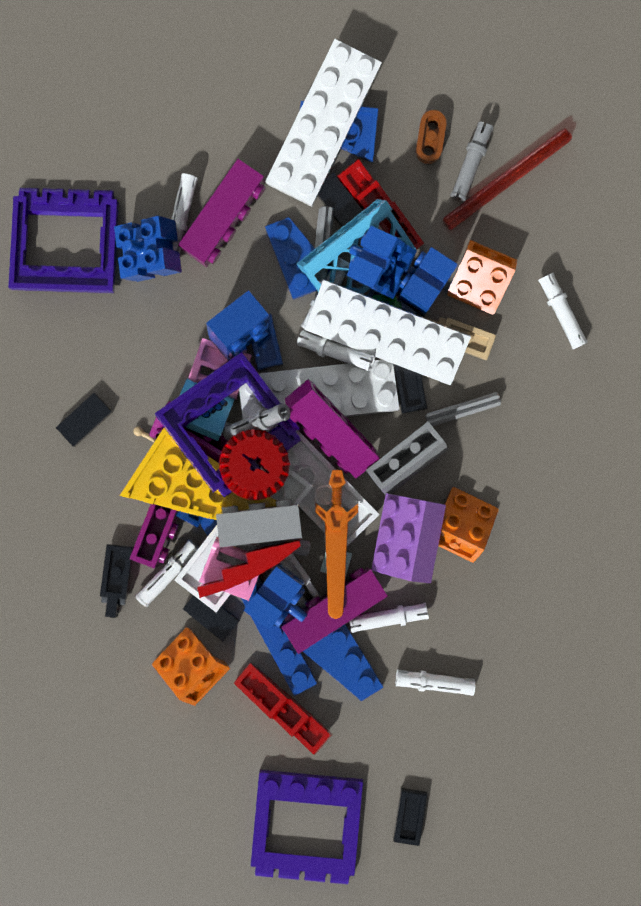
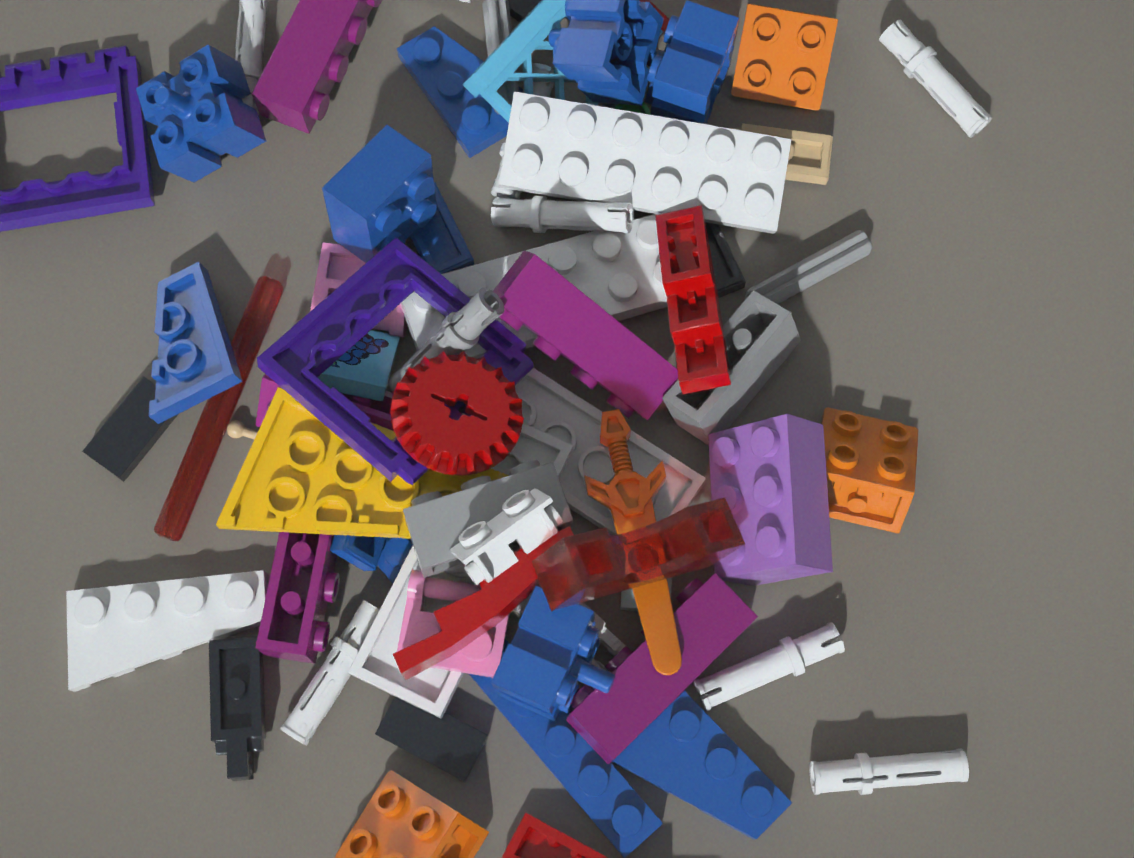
camera: 10 degrees left, 15 degrees down
(75, 526) = (139, 623): none -> white wing
(123, 383) = (193, 344): none -> wing
(131, 417) = (217, 413): none -> clear red axle
(253, 544) = (489, 542): none -> white hinge
(332, 559) = (605, 564): none -> clear red arch
(394, 419) = (692, 300): none -> red slope

